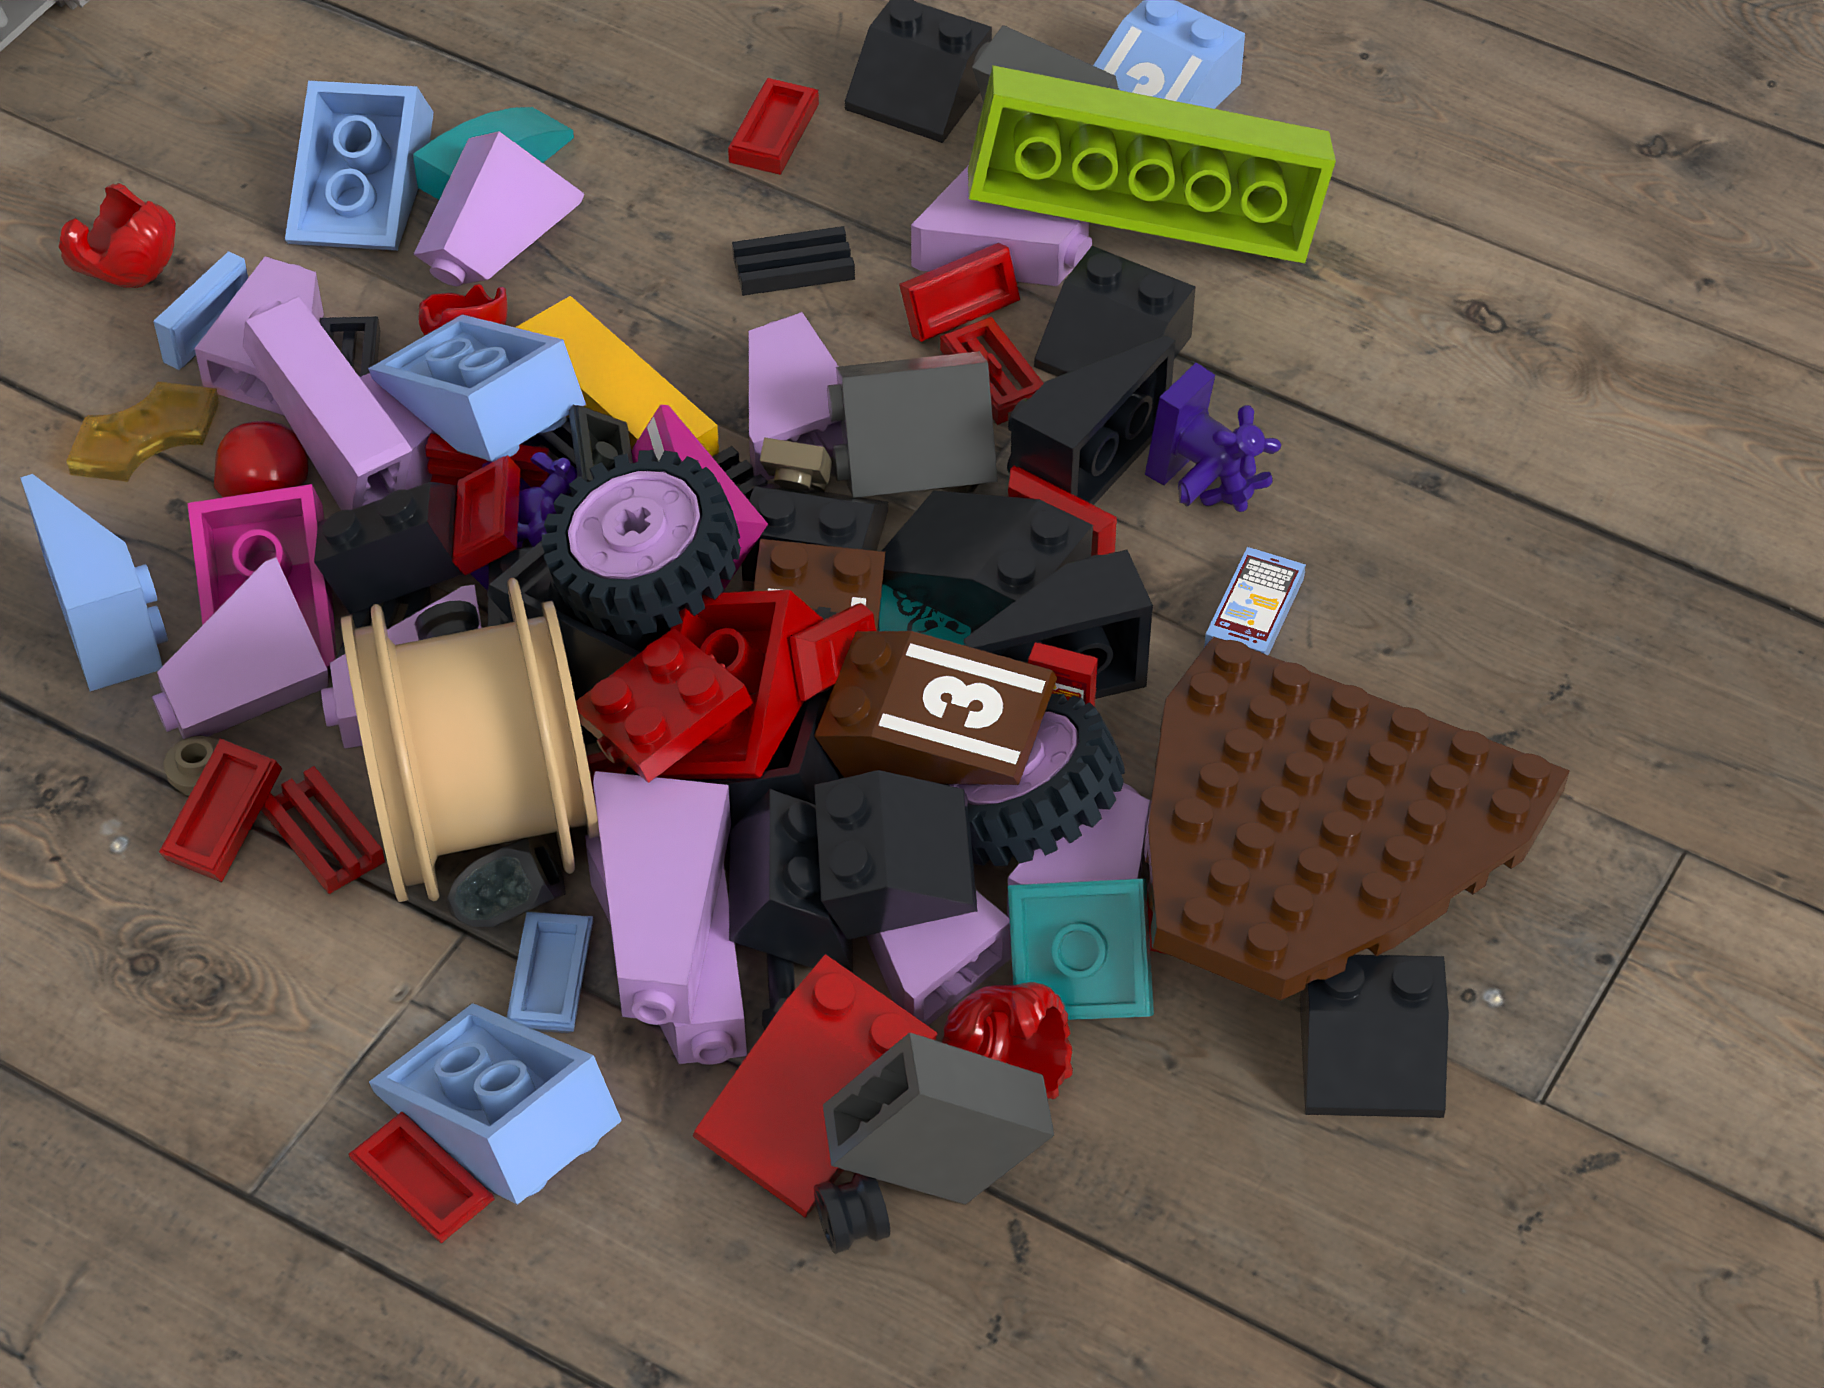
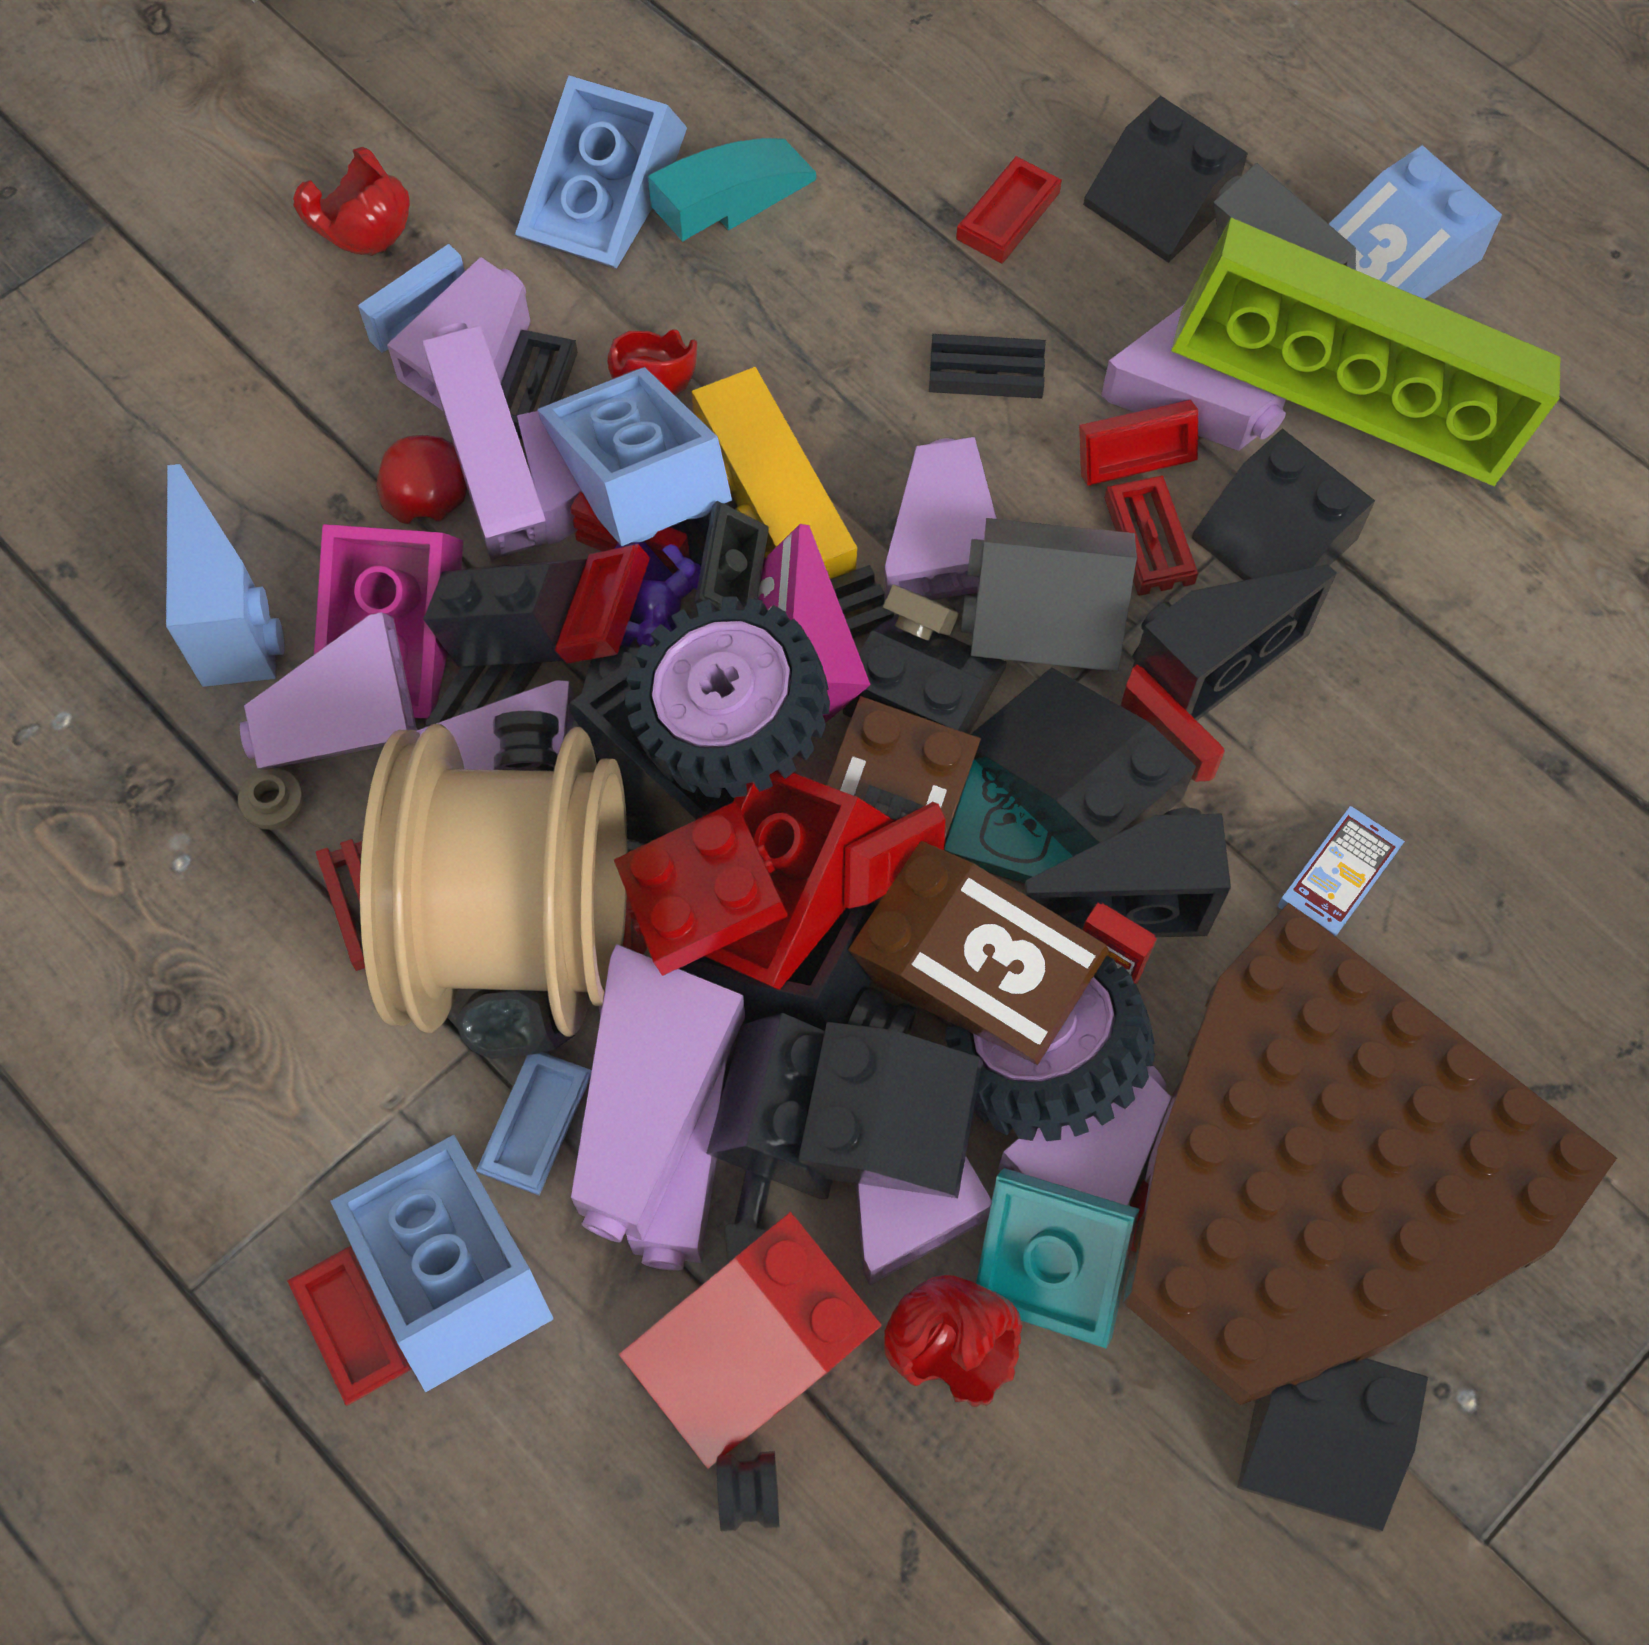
camera: 15 degrees right, 15 degrees up
(121, 441) = (302, 421): clear yellow tile -> none
(220, 810) = (275, 859): red tile -> none
(492, 210) = (708, 253): lavender slope -> none
(937, 1119) = (851, 1443): dark grey brick -> none
(1188, 433) = (1352, 703): dark purple piece -> none

